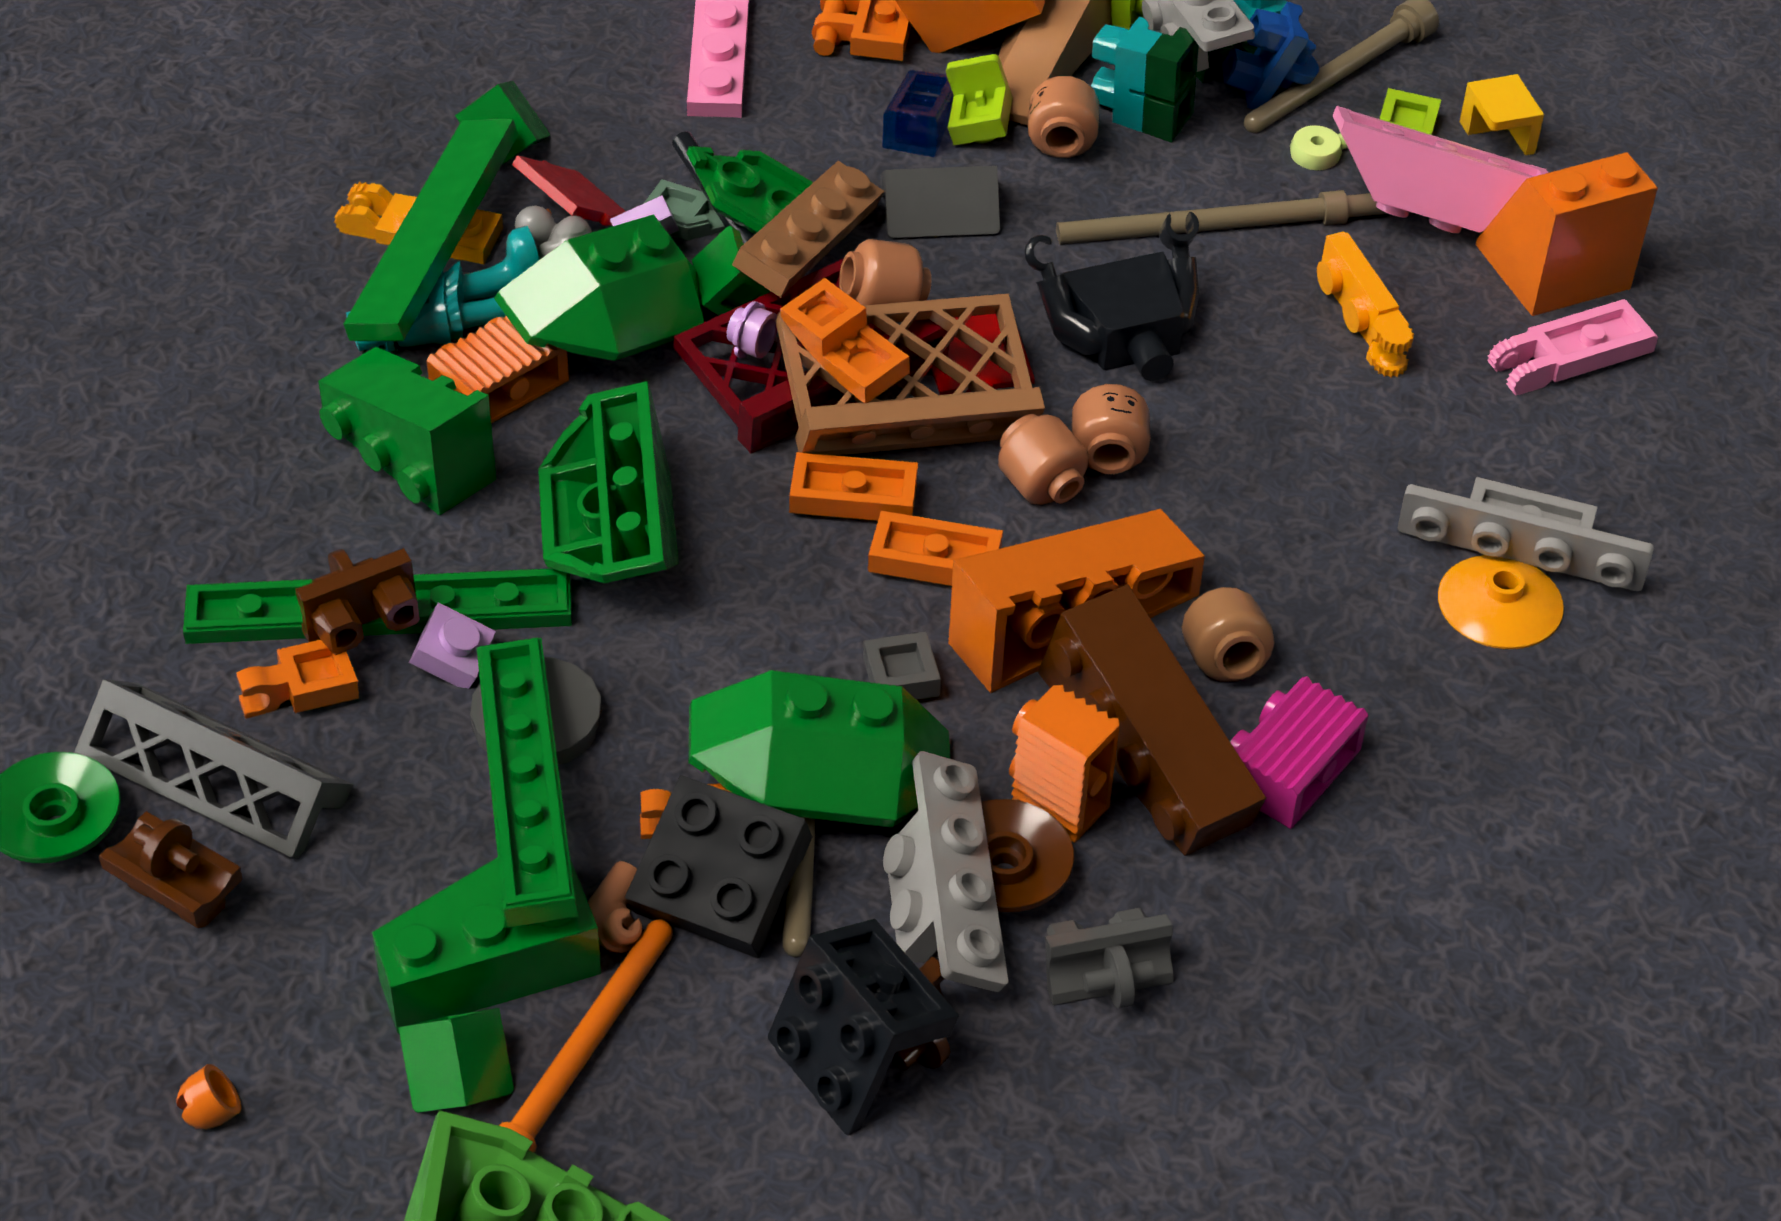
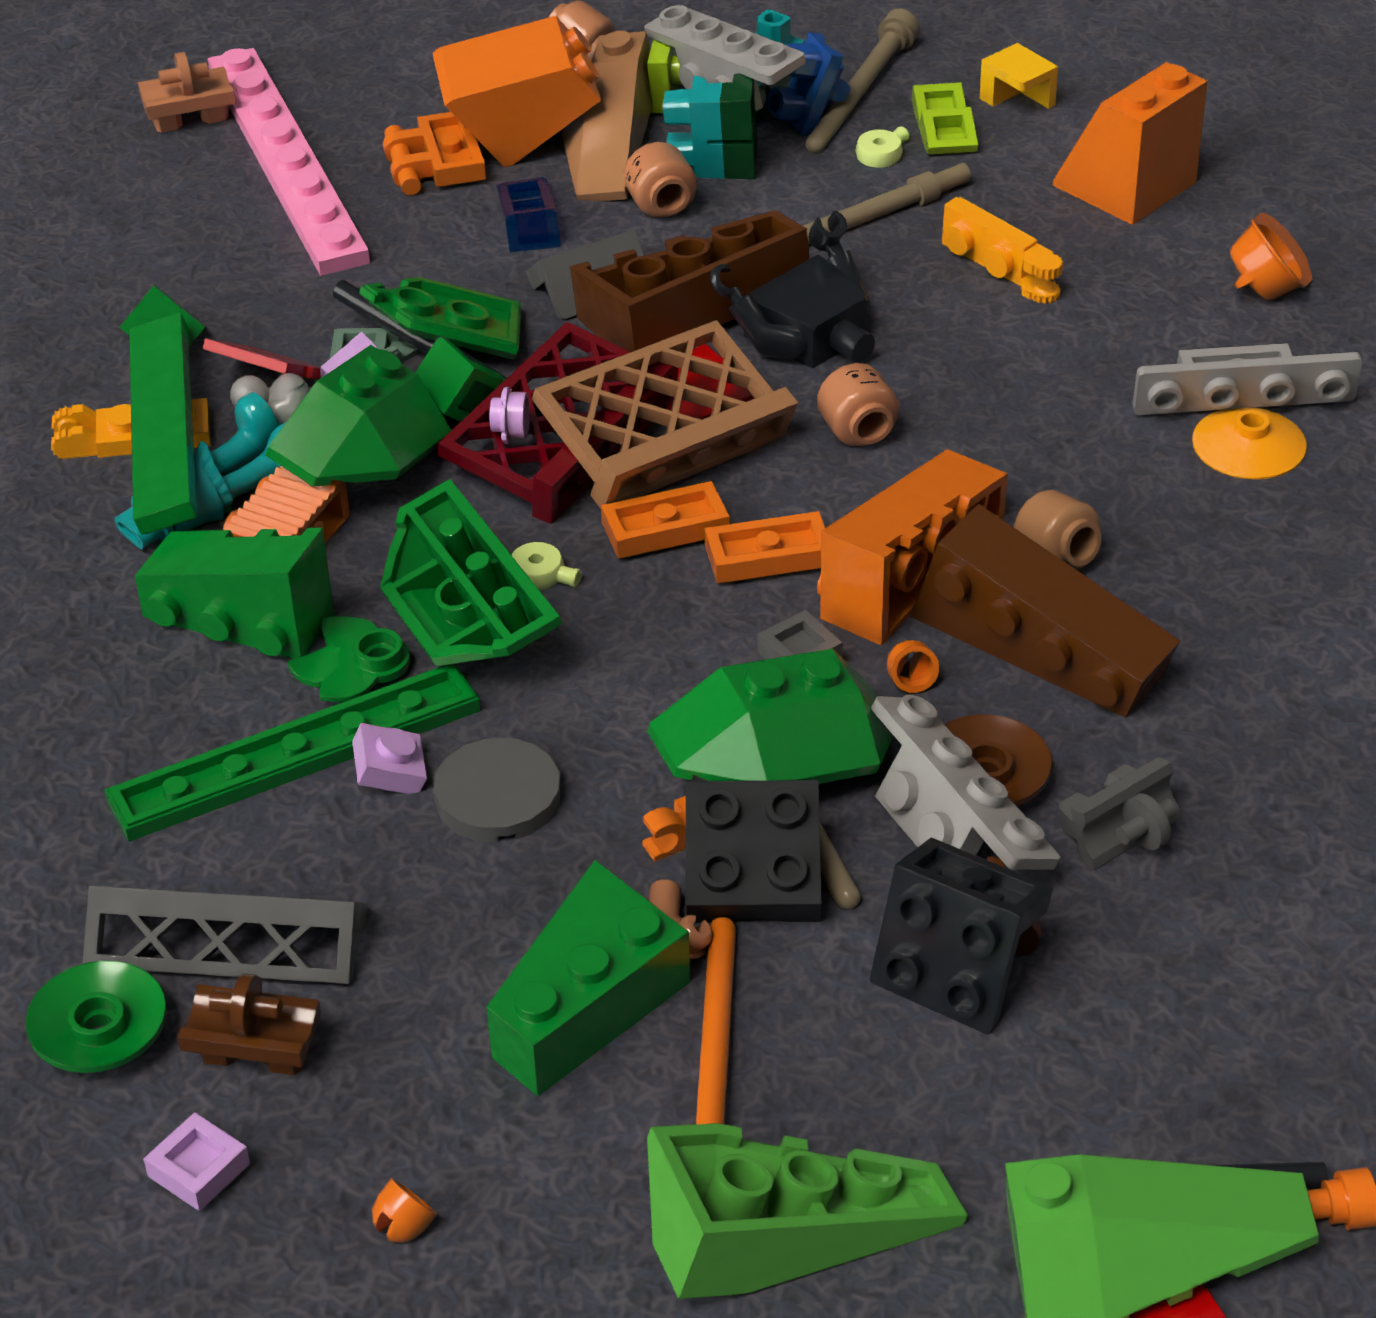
camera: 20 degrees left, 5 degrees down
(60, 980) = (197, 1161): none -> lavender plate
(304, 674) = (266, 825): orange plate -> none
(357, 594) = (280, 739): reddish brown hips -> none
(456, 1060) = (614, 1094): green panel -> none
(485, 534) = (353, 659): none -> green plate
(525, 784) = (547, 838): green tile -> none
(710, 496) = (545, 565): none -> yellowish green piece
(808, 228) = (504, 322): medium nougat plate -> none
(838, 337) = (592, 389): orange slope -> none
(884, 273) = (601, 334): nougat head -> none
(979, 101) = (578, 186): lime bracket -> none
(980, 242) = (671, 290): none -> reddish brown wedge
(1006, 741) = (922, 666): none -> orange hinge
(1043, 459) = (816, 446): nougat head -> none
(1065, 758) = (997, 659): orange brick -> none
(1300, 747) = (1174, 592): dark pink brick -> none
(1430, 174) = (999, 134): bright pink wedge -> none
(1573, 346) = (1185, 234): bright pink hinge -> none
(1645, 403) = (1269, 259): none -> orange piece

